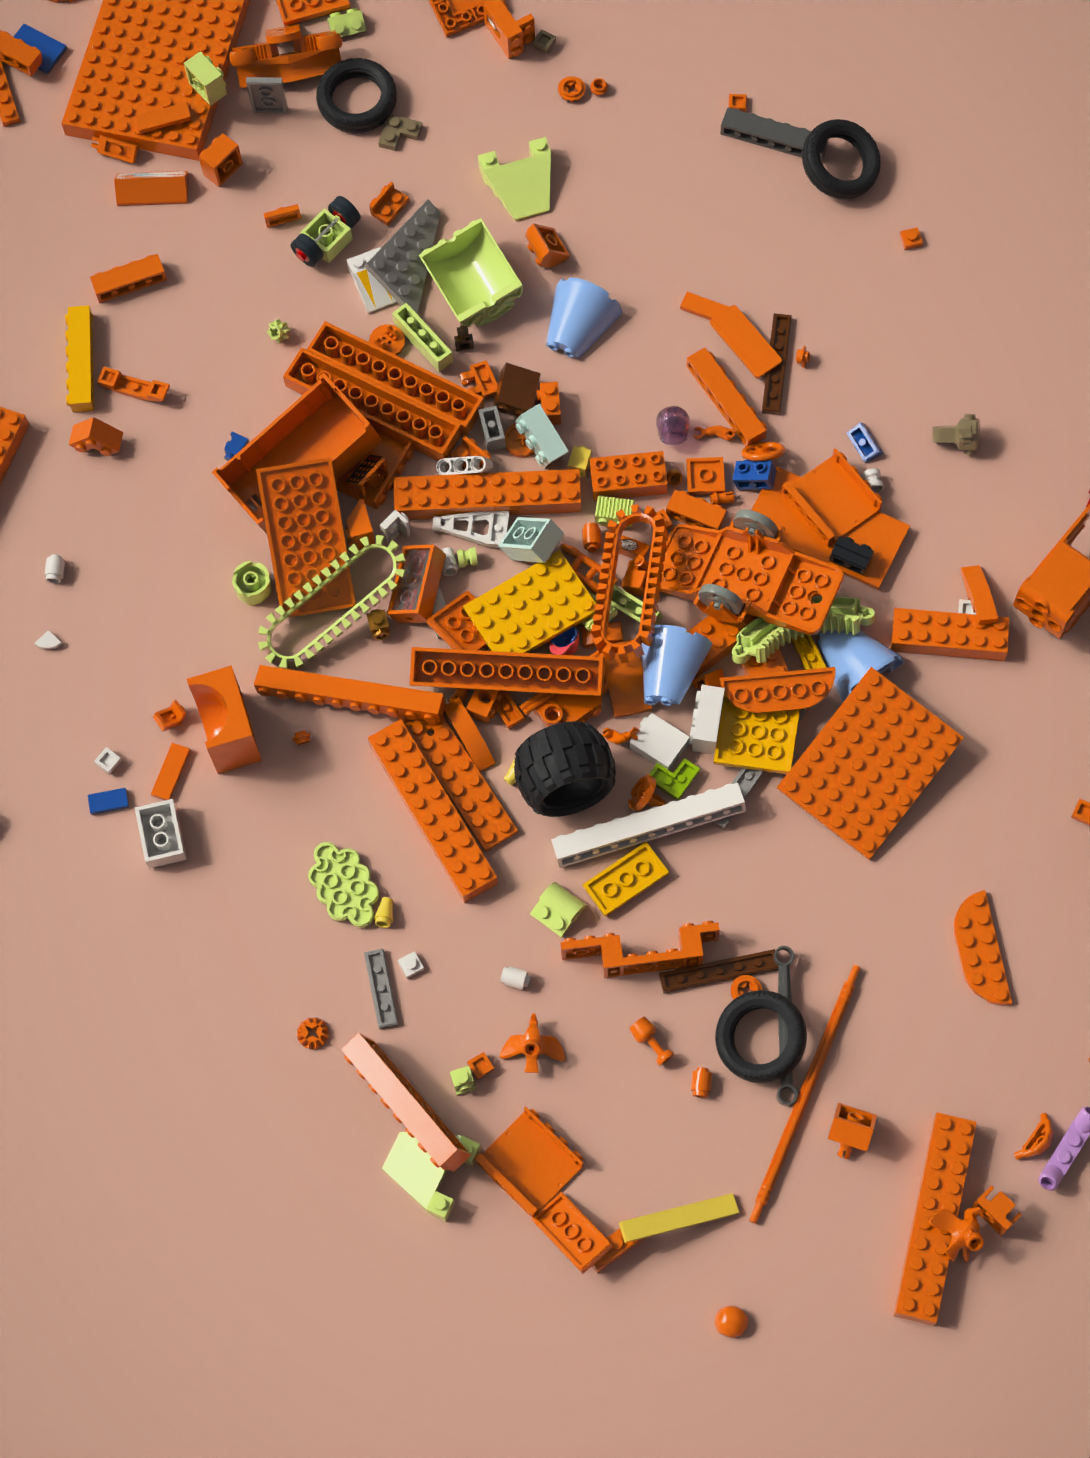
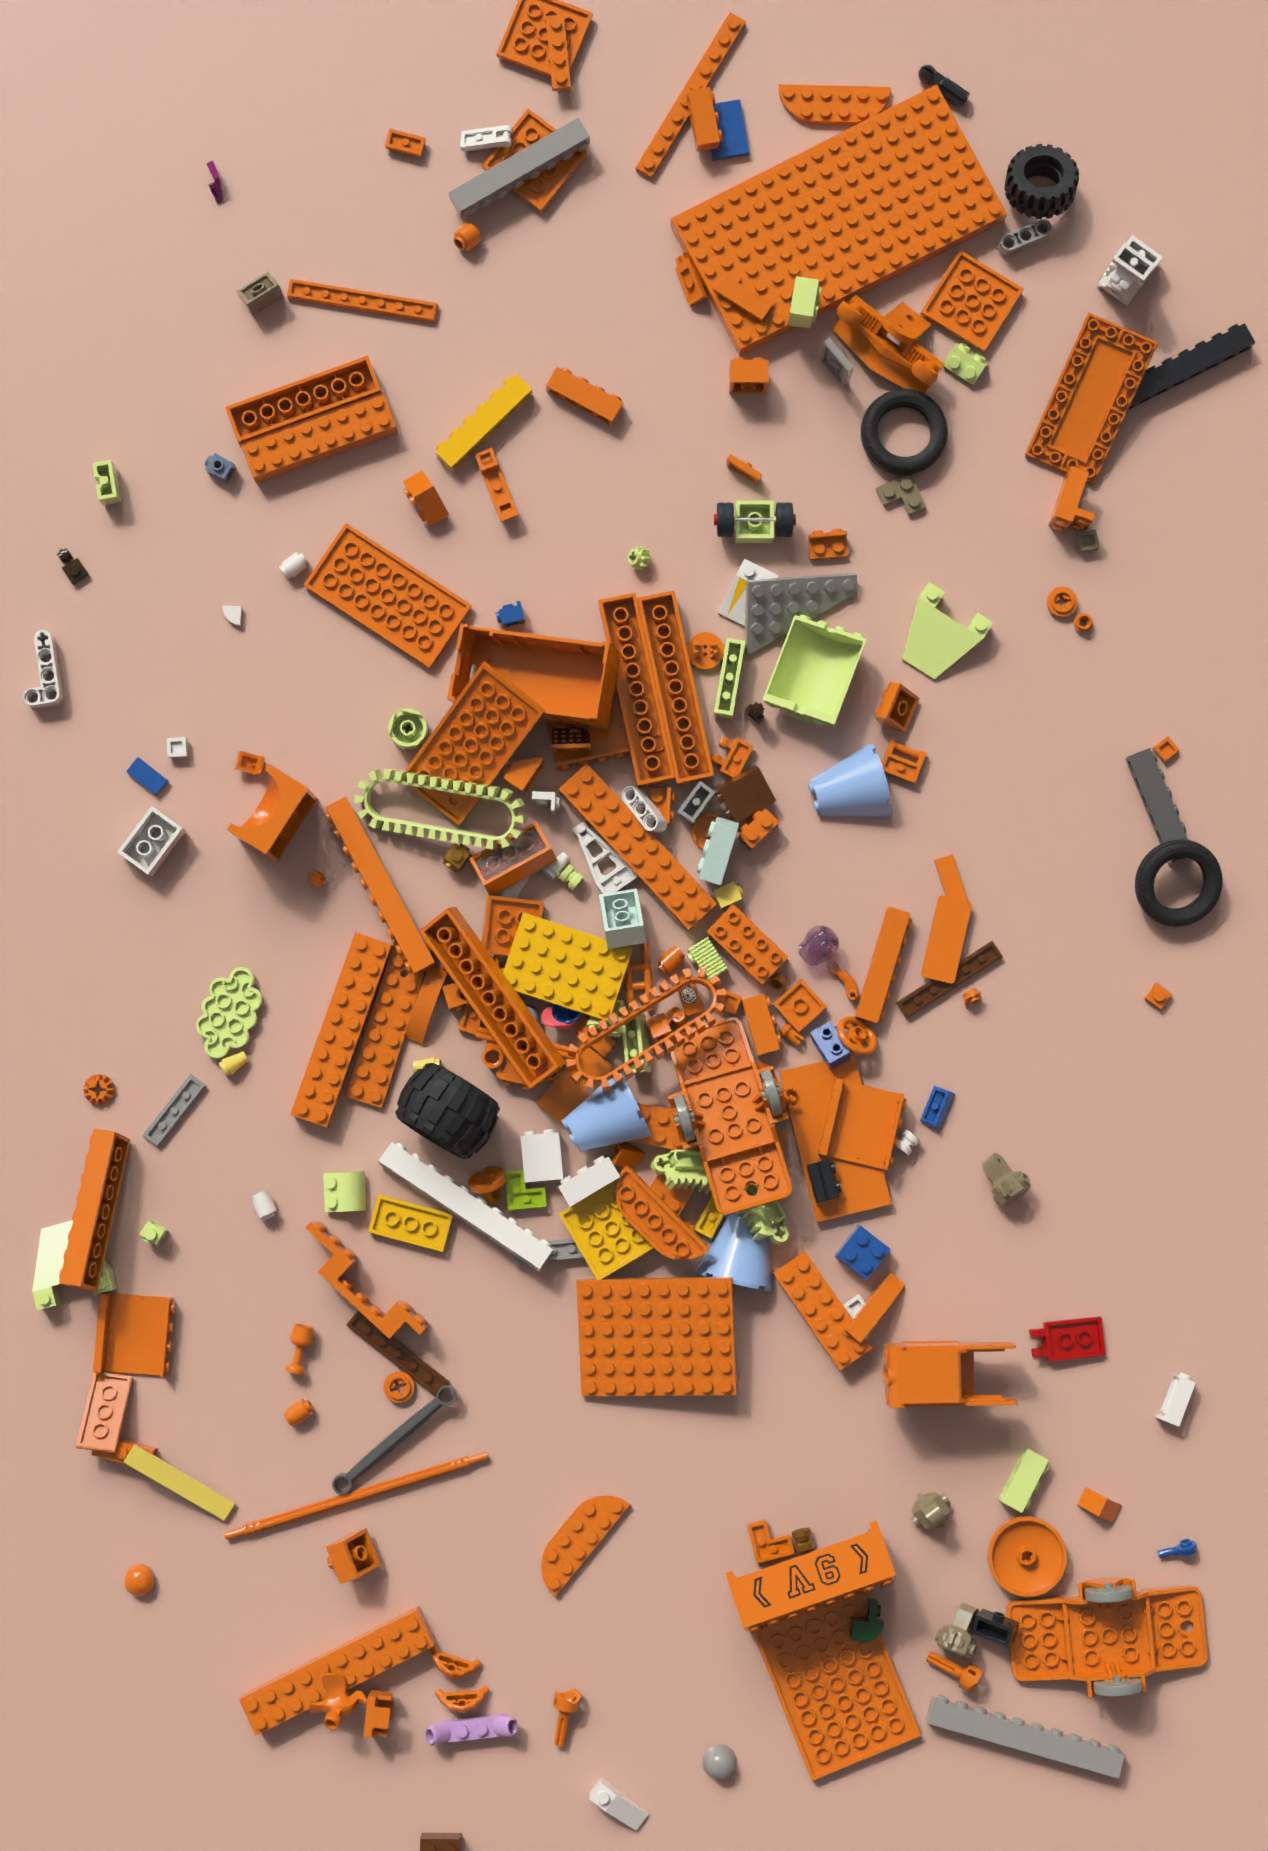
camera: 45 degrees right, 15 degrees up
(139, 522) = (387, 595): none -> orange plate
(151, 188) = (681, 340): orange slope -> none
(170, 771) = (208, 802): orange tile -> none
(410, 965) = (210, 1117): white plate -> none
(480, 1065) = (176, 1236): orange plate -> none
(532, 1045) = (221, 1263): orange animal -> none
(597, 275) = (902, 767): none -> orange plate
(620, 738) = (518, 1122): orange arm -> none
(788, 1058) = (334, 1430): black tyre -> none
(929, 572) = (862, 1252): none -> blue brick
(1004, 1125) = (451, 1665): none -> orange piece

